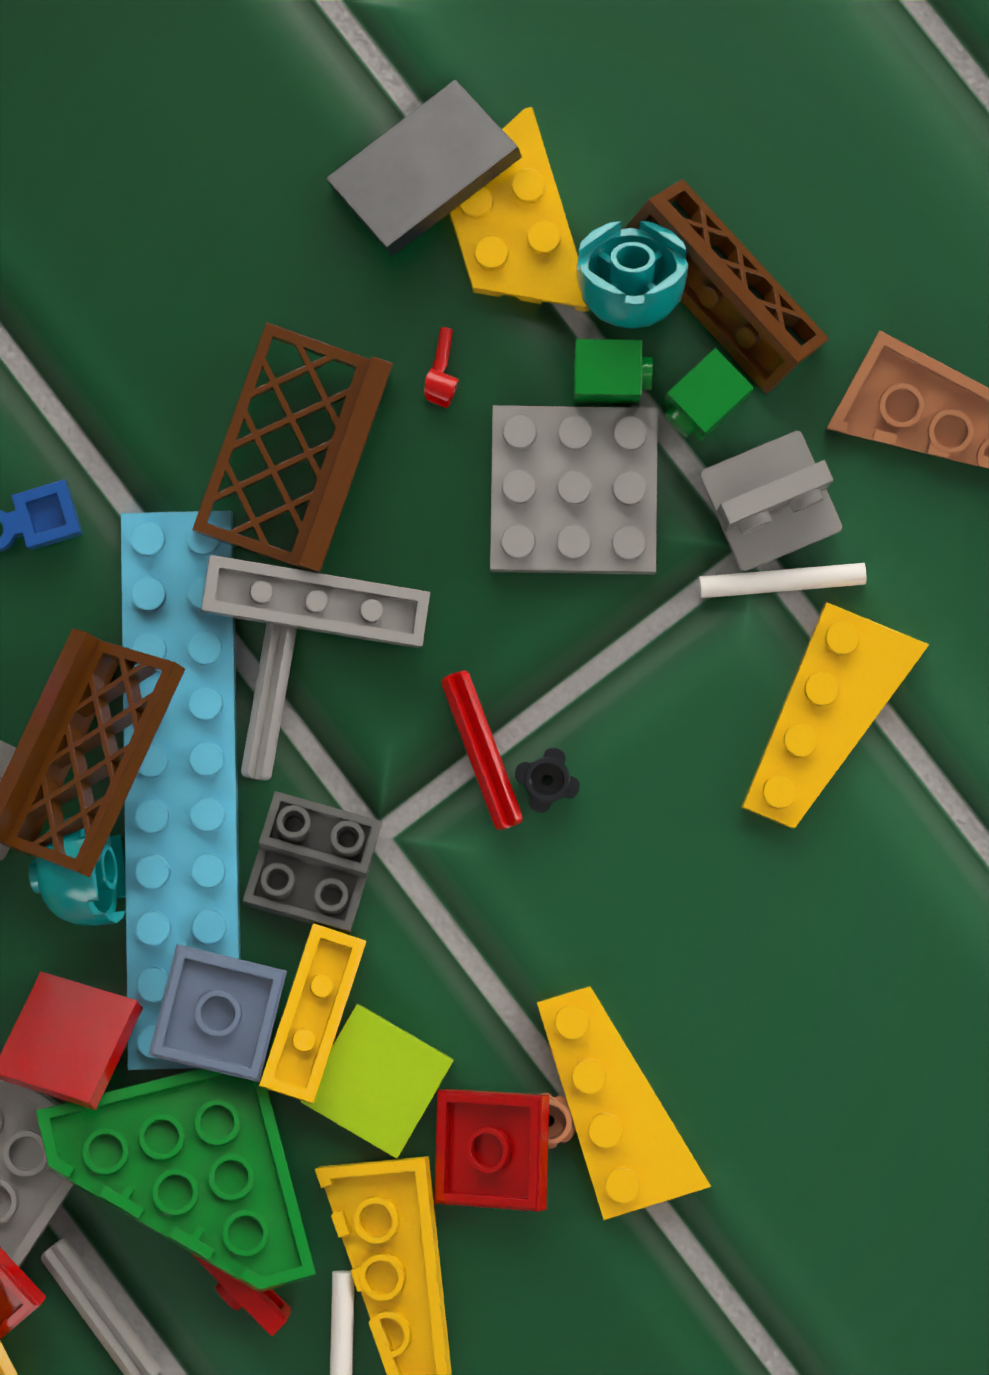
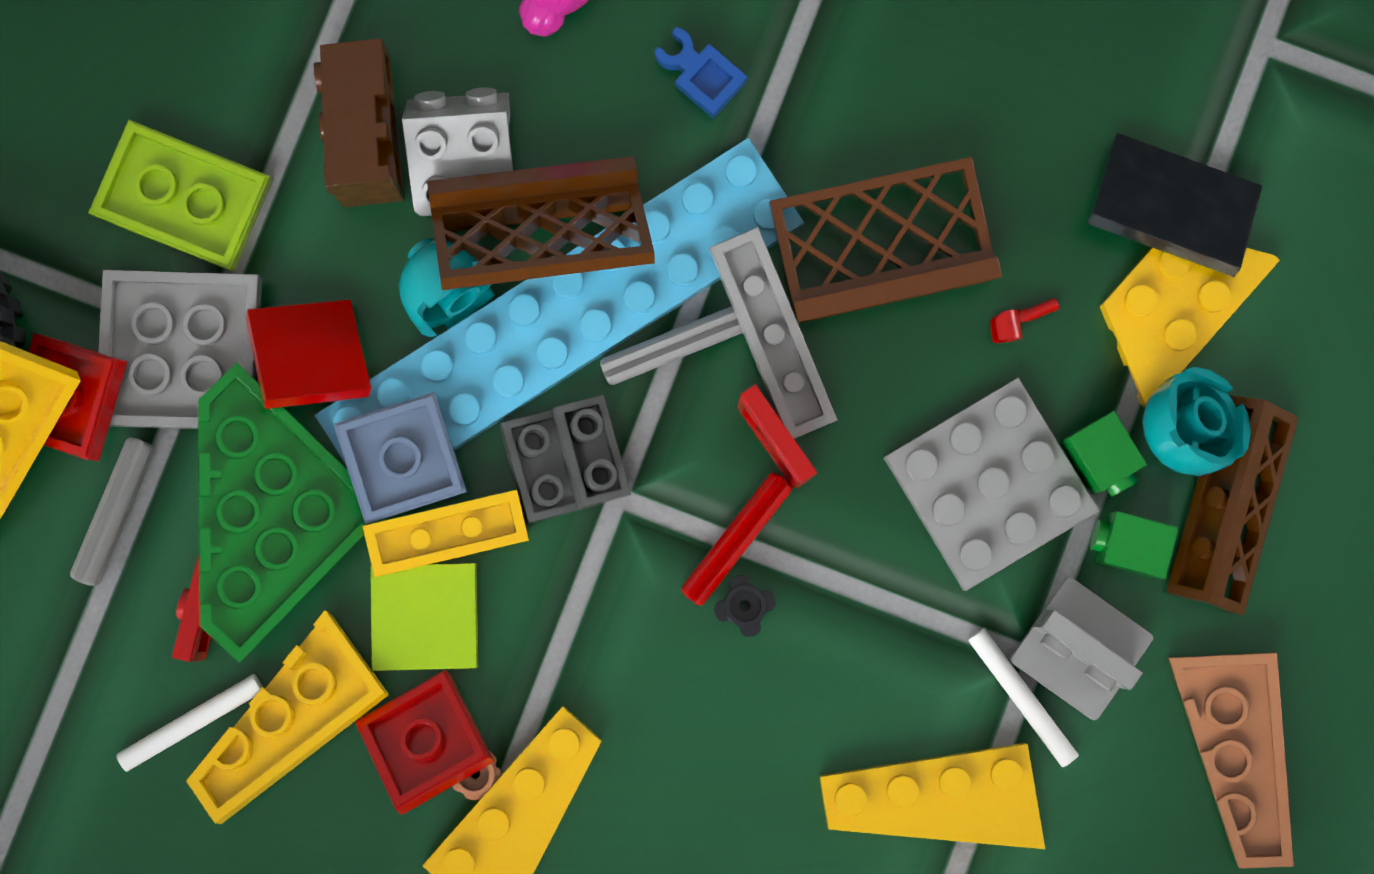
camera: 60 degrees right, 0 degrees up
(412, 657) = (775, 437): none -> red tile

